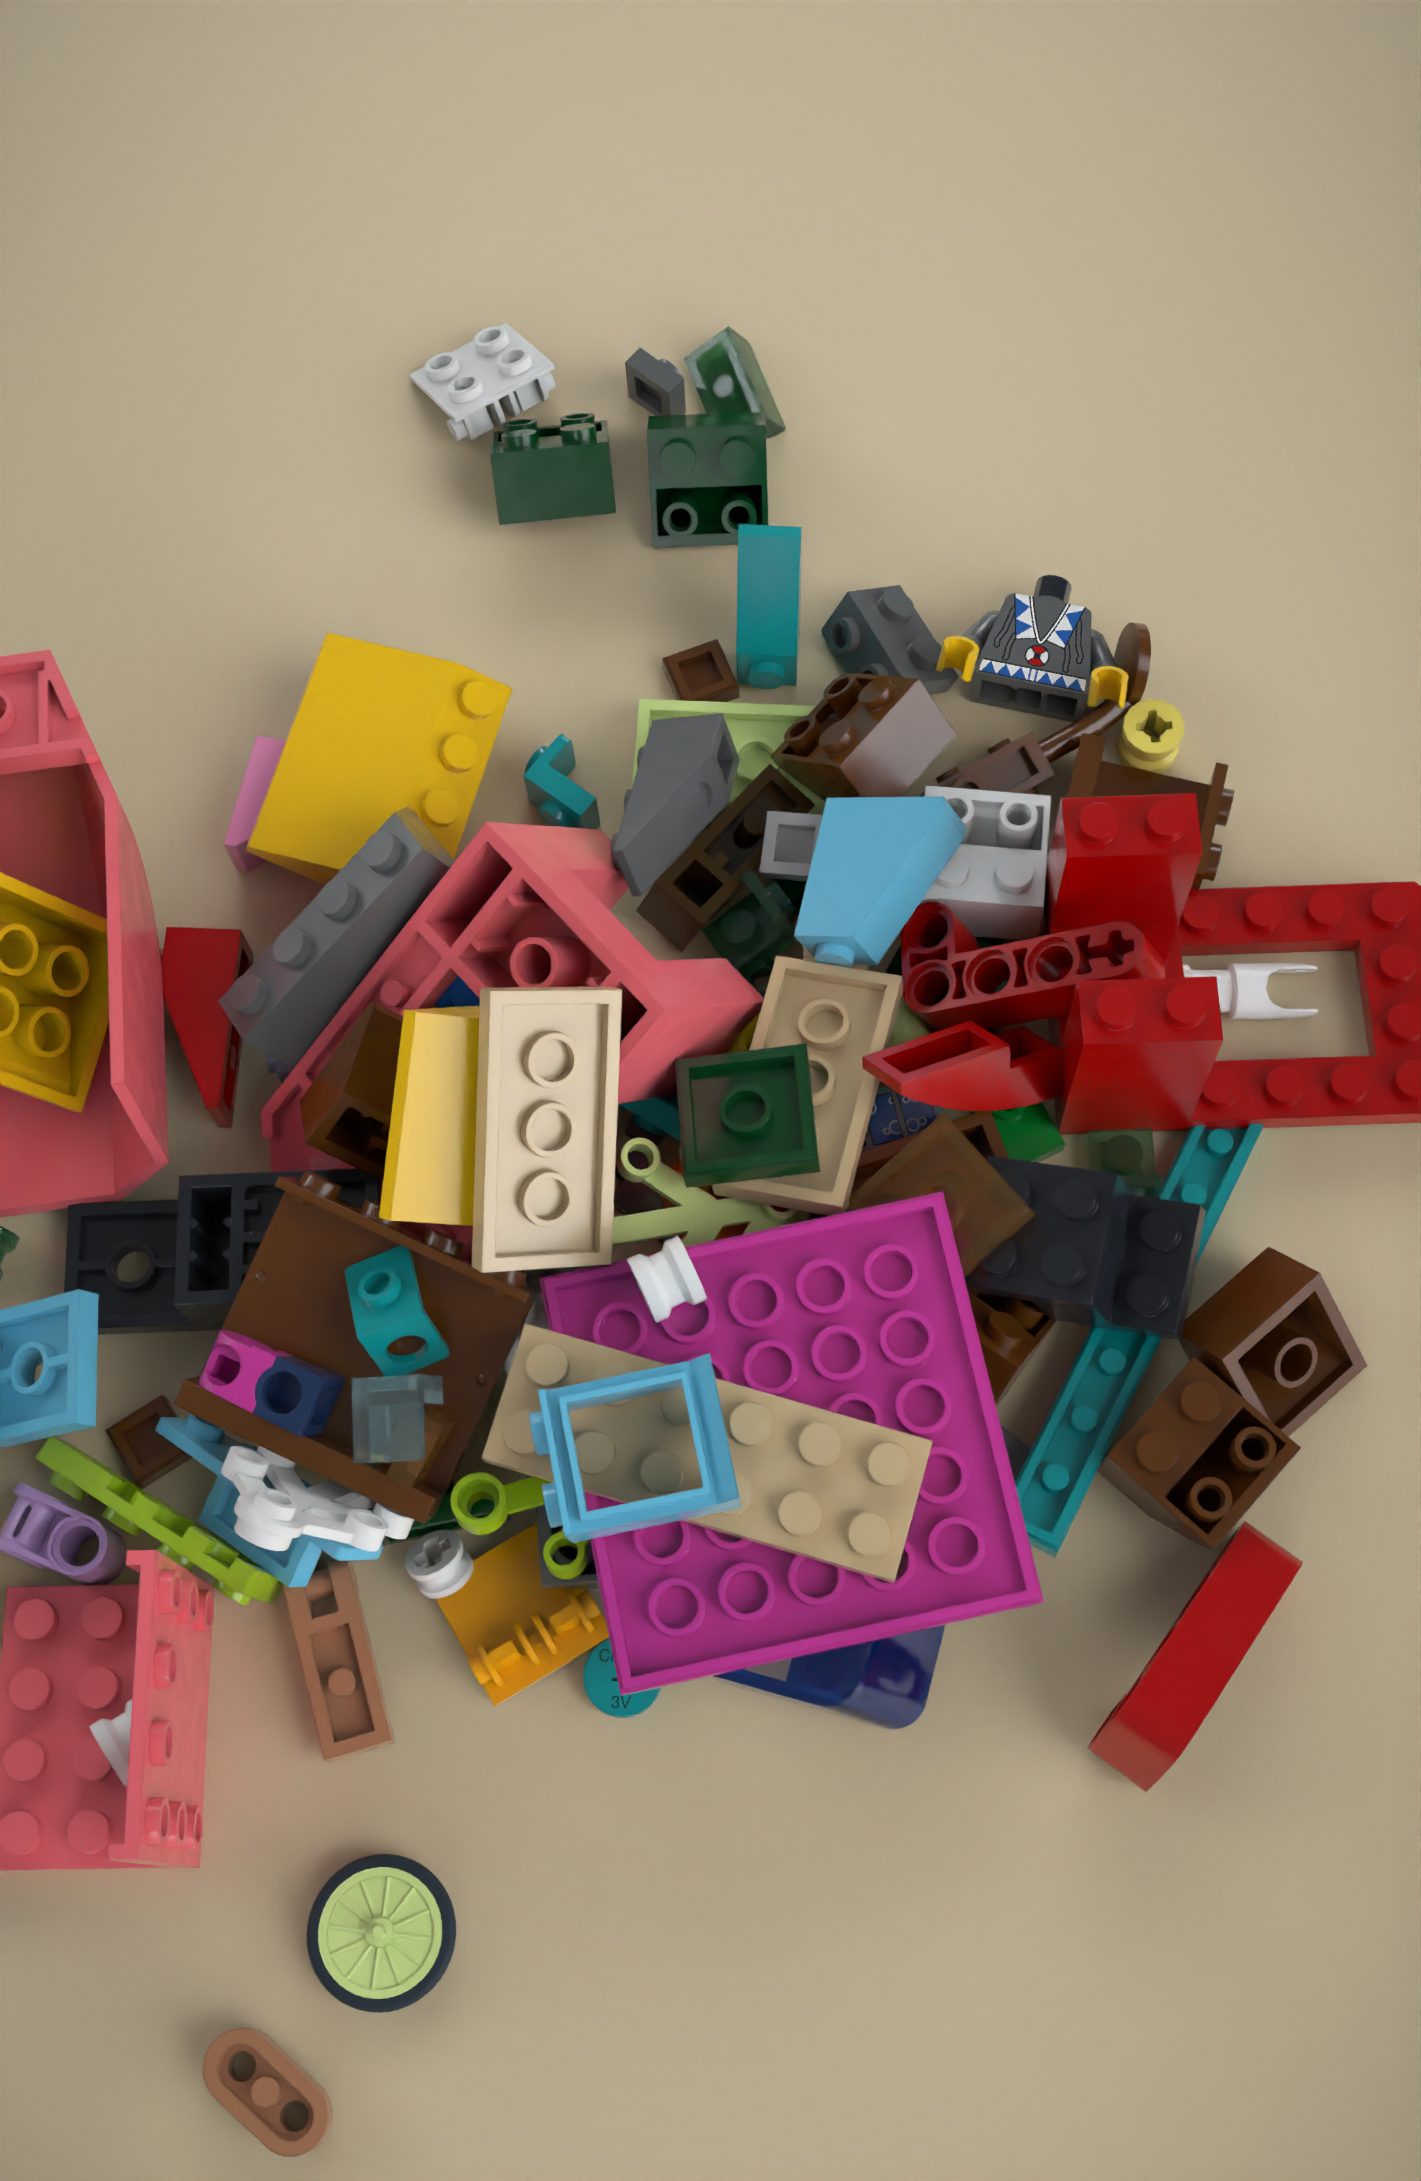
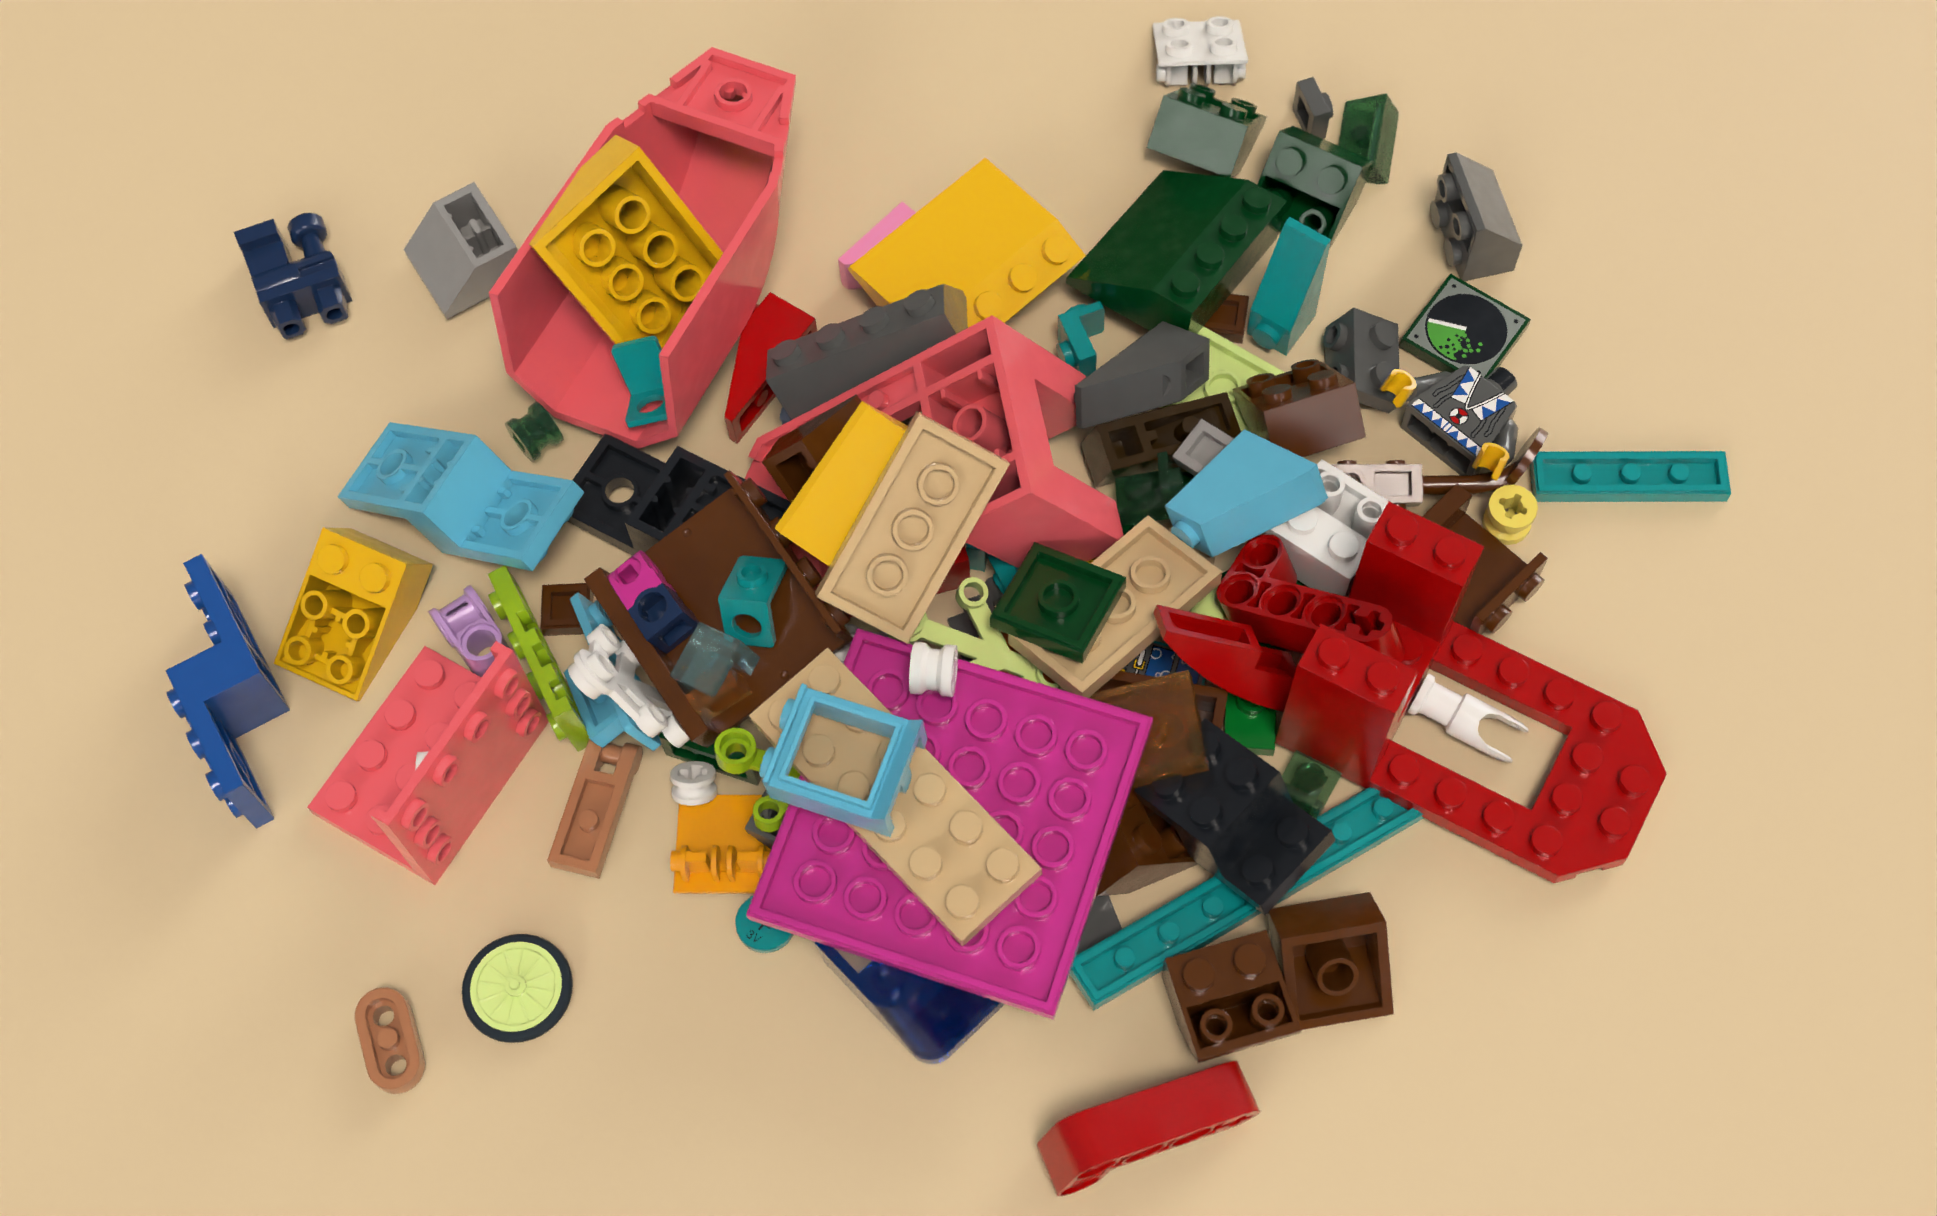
camera: 30 degrees right, 5 degrees down
(85, 1113) = (641, 371): none -> teal bracket
(608, 625) = (1180, 249): none -> dark green slope
(914, 424) = (1474, 220): none -> dark grey slope
(974, 554) = (1464, 329): none -> tile
(1249, 624) = (1630, 476): none -> teal tile

